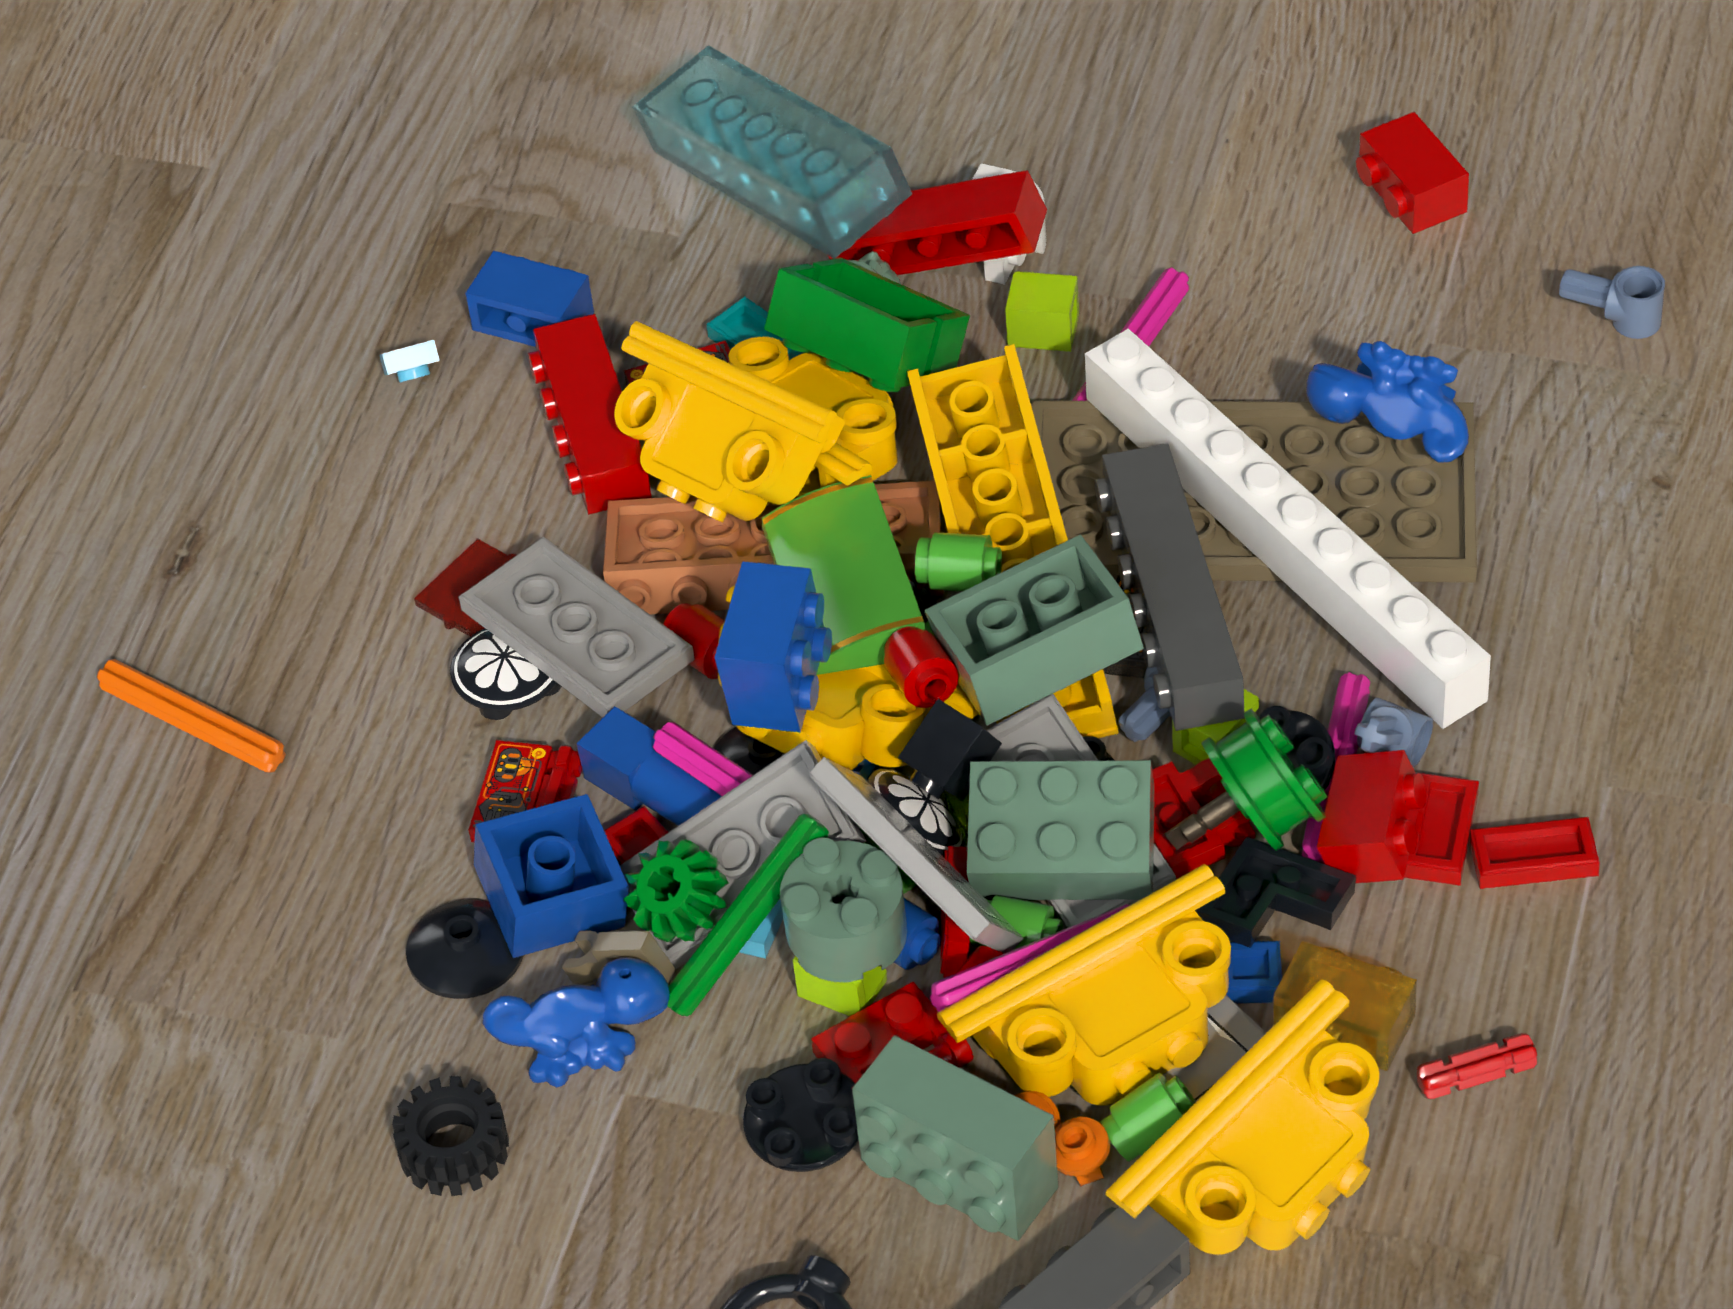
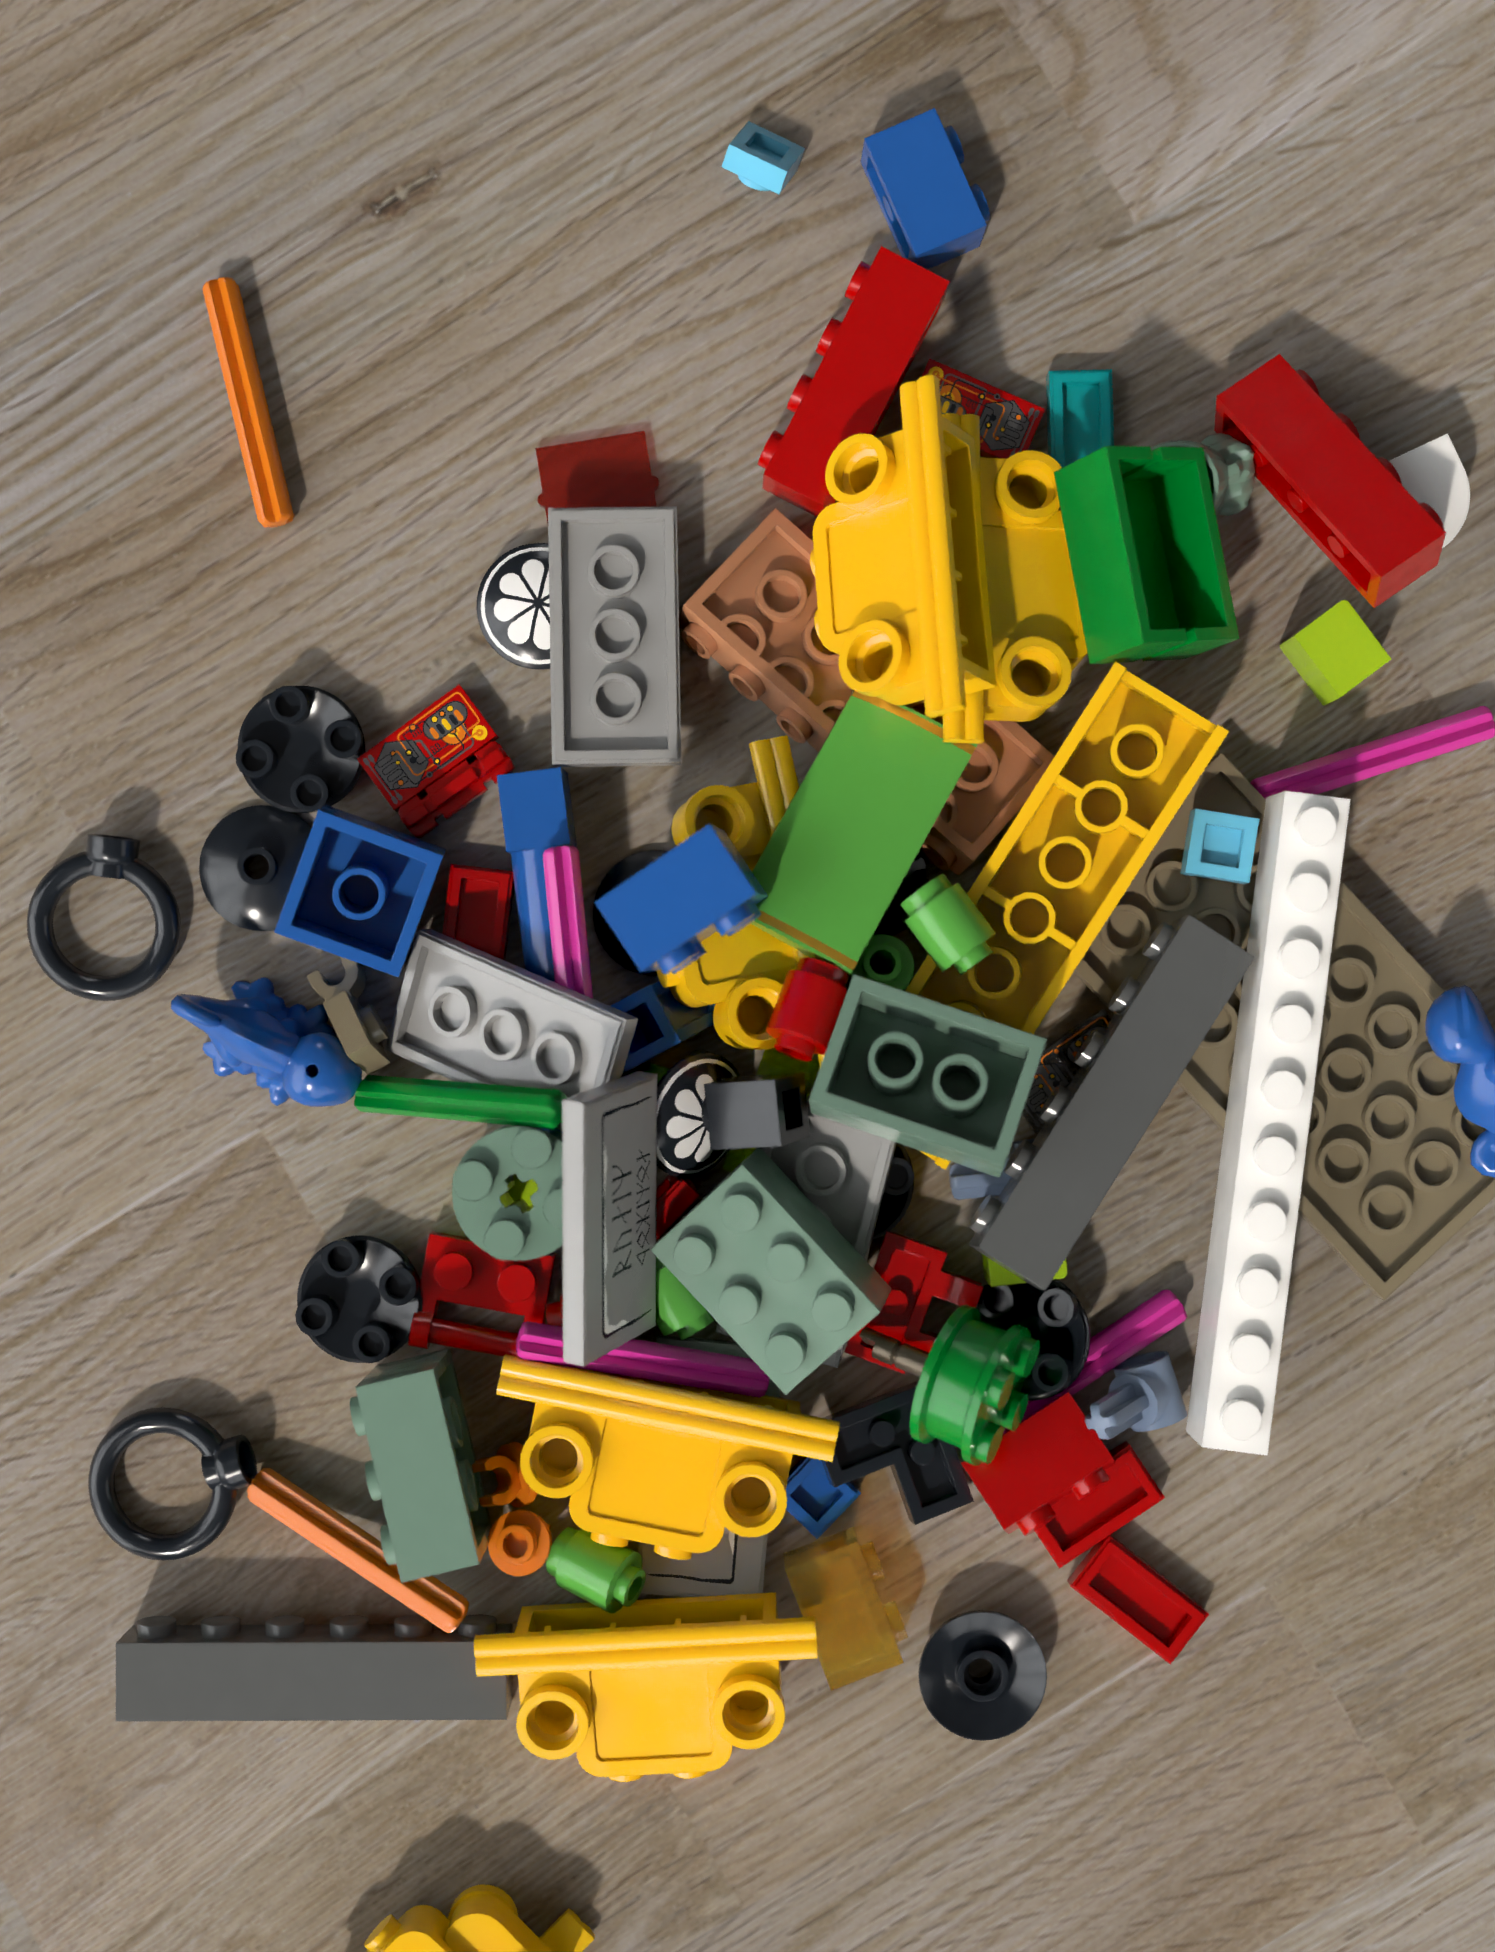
camera: 35 degrees right, 40 degrees up
(353, 1012) = (108, 858): none -> black piece
(421, 855) = (300, 749): none -> black dish
(451, 1164) = (46, 1064): black tyre -> none
(672, 868) = (423, 1027): green gear -> none
(701, 630) = (714, 742): red brick -> none
(773, 151) = (1275, 241): clear light blue brick -> none
(968, 1246) = (354, 1548): none -> orange axle
(1084, 430) = (1219, 846): none -> medium azure plate
(1476, 1066) = (888, 1745): axle -> none
(1483, 945) = (989, 1704): none -> black dish

